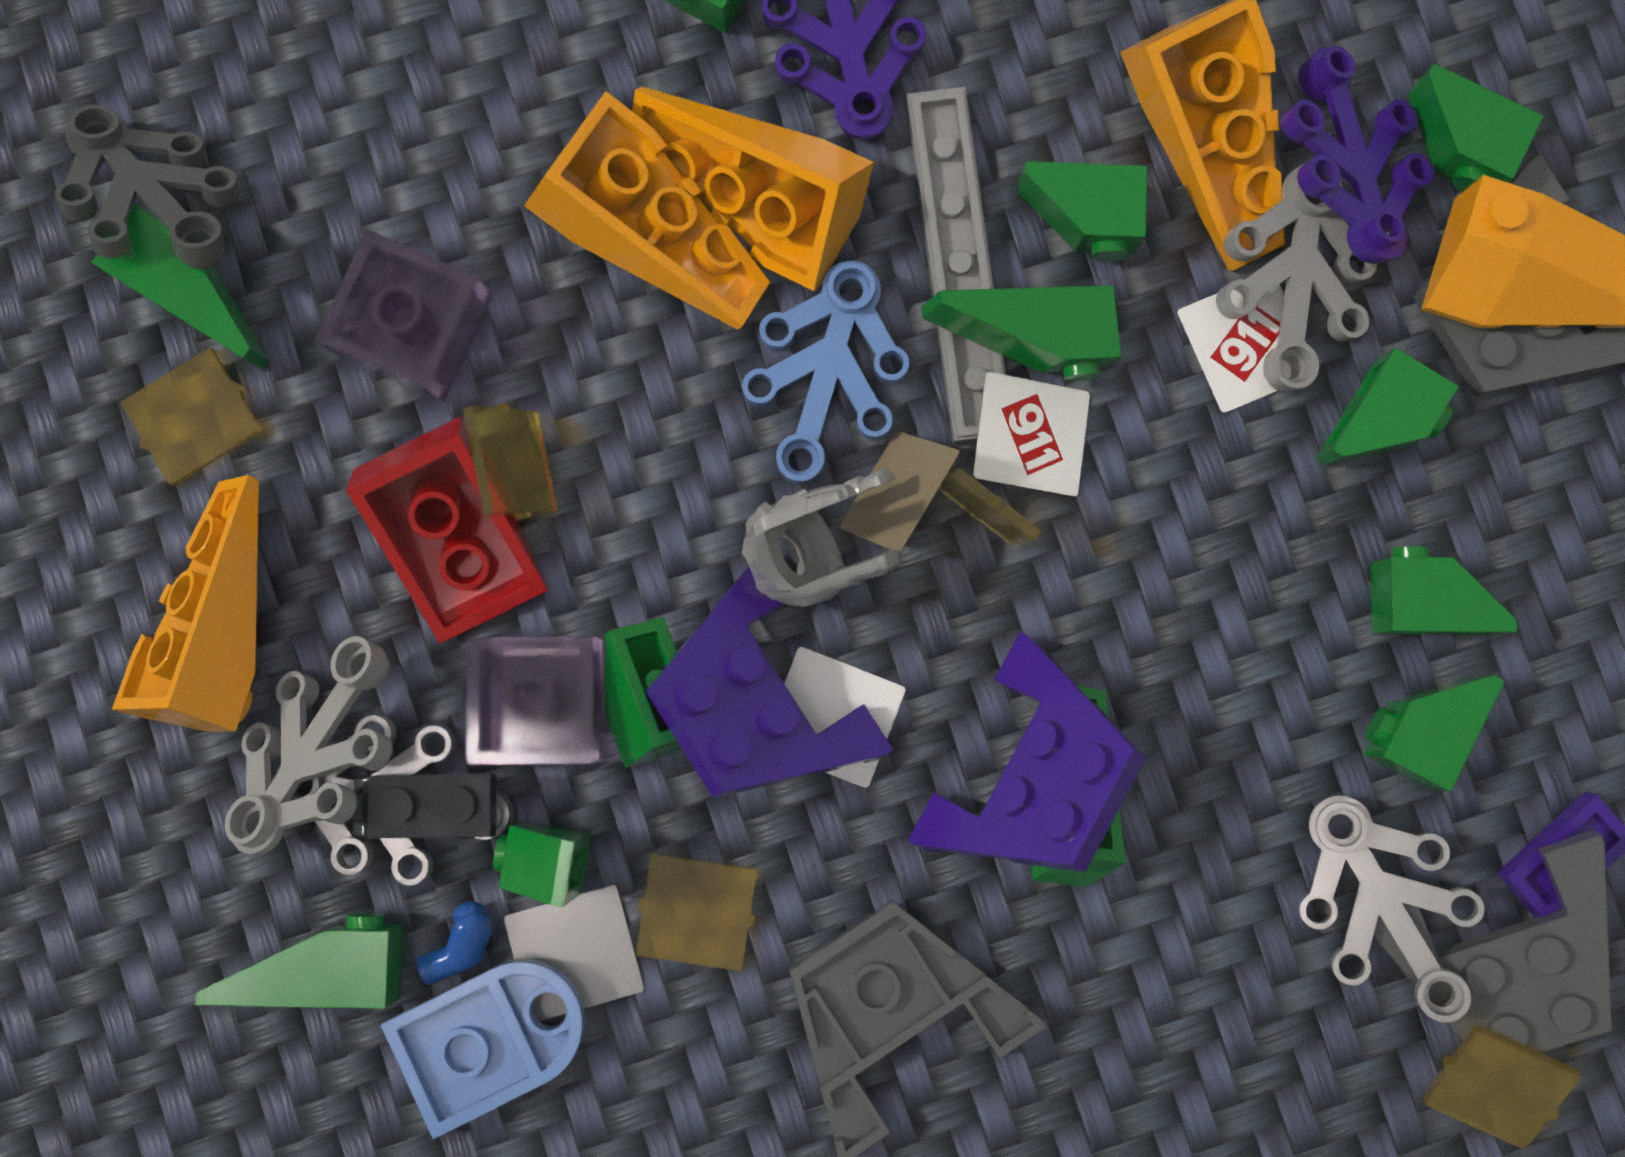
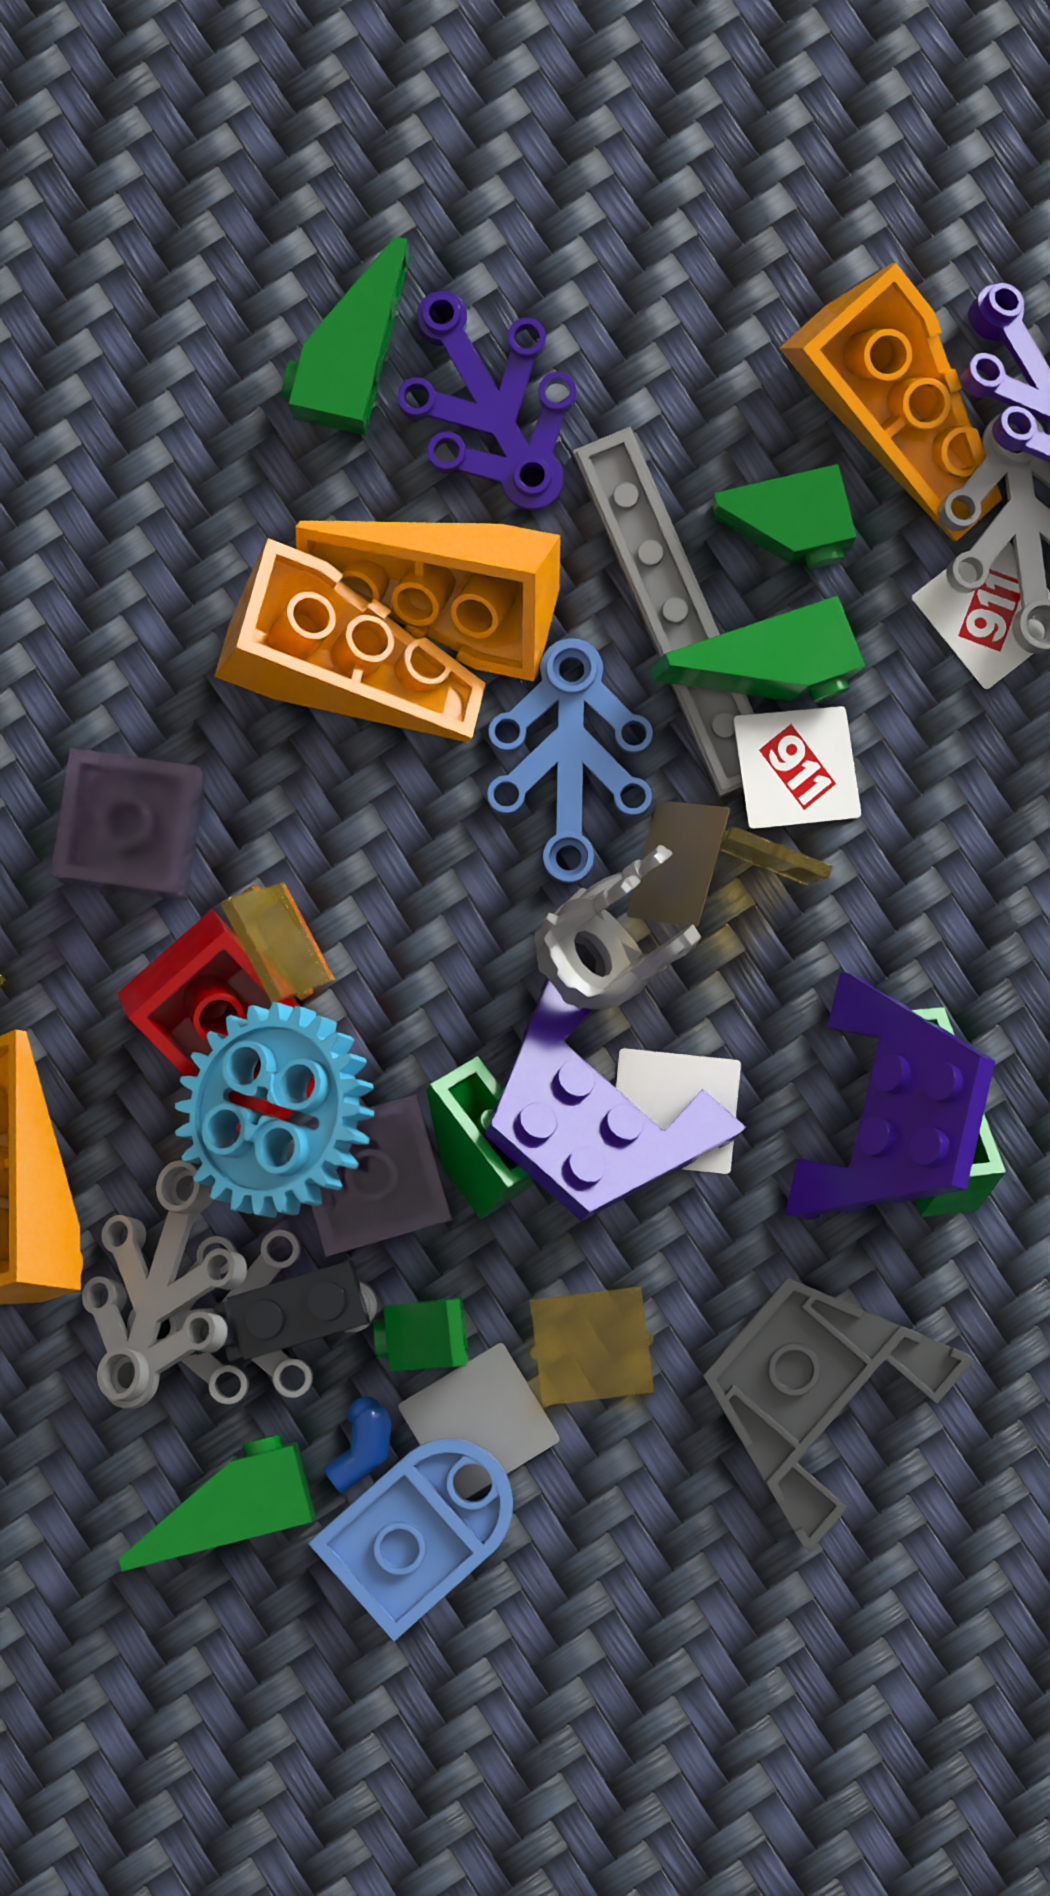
camera: 10 degrees left, 0 degrees up
(423, 650) = (255, 1168): none -> medium azure gear

